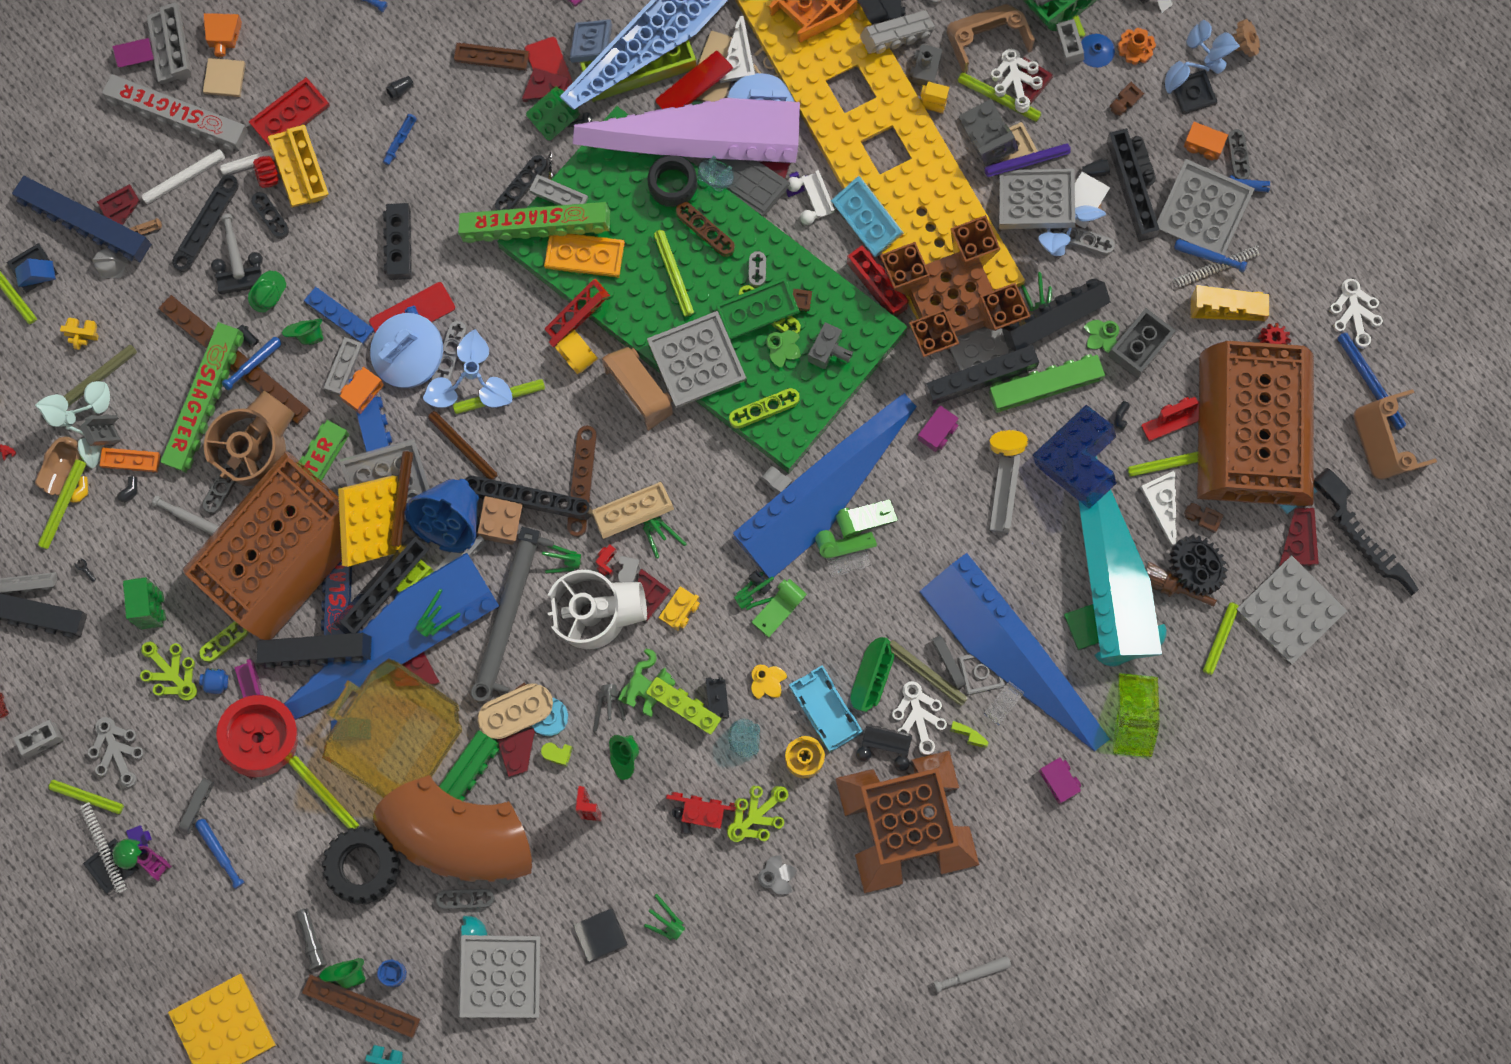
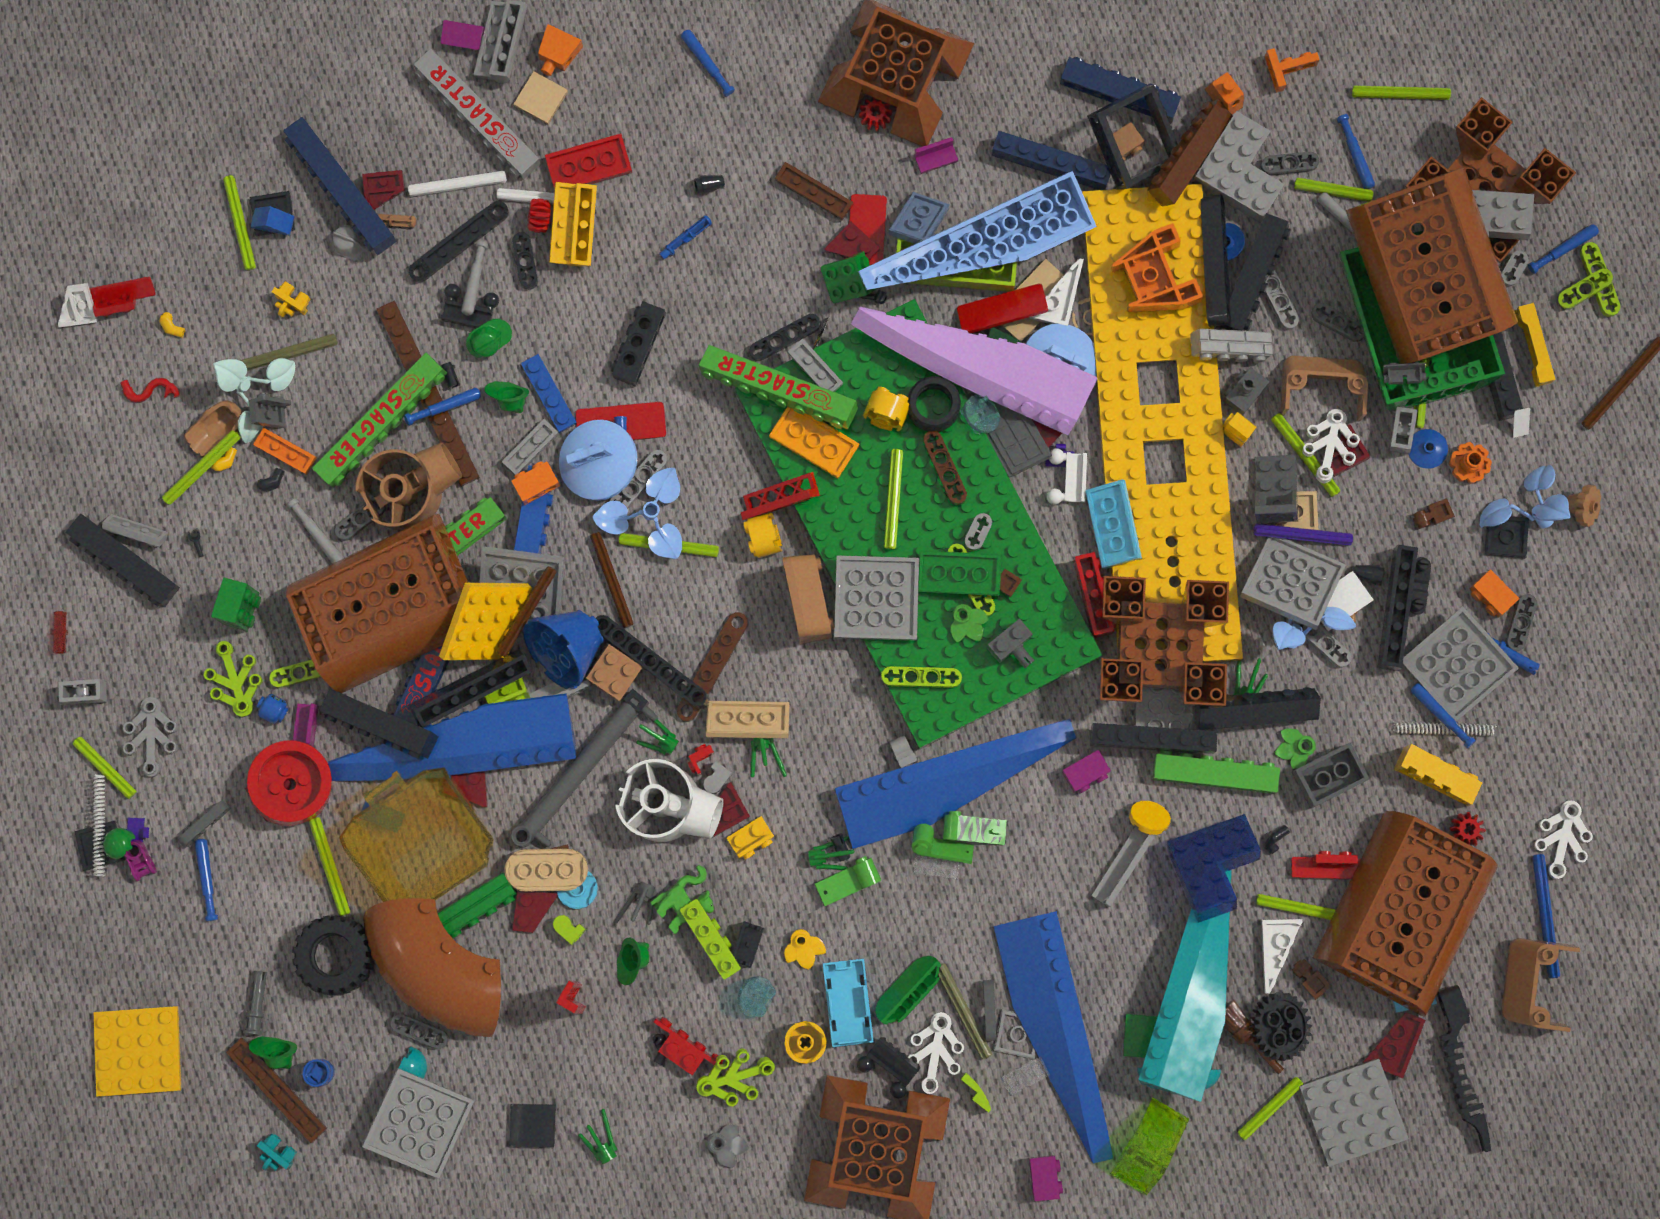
camera: 25 degrees right, 5 degrees up
(426, 624) = (496, 749): green plant -> none
(635, 200) = (887, 409): none -> yellow brick

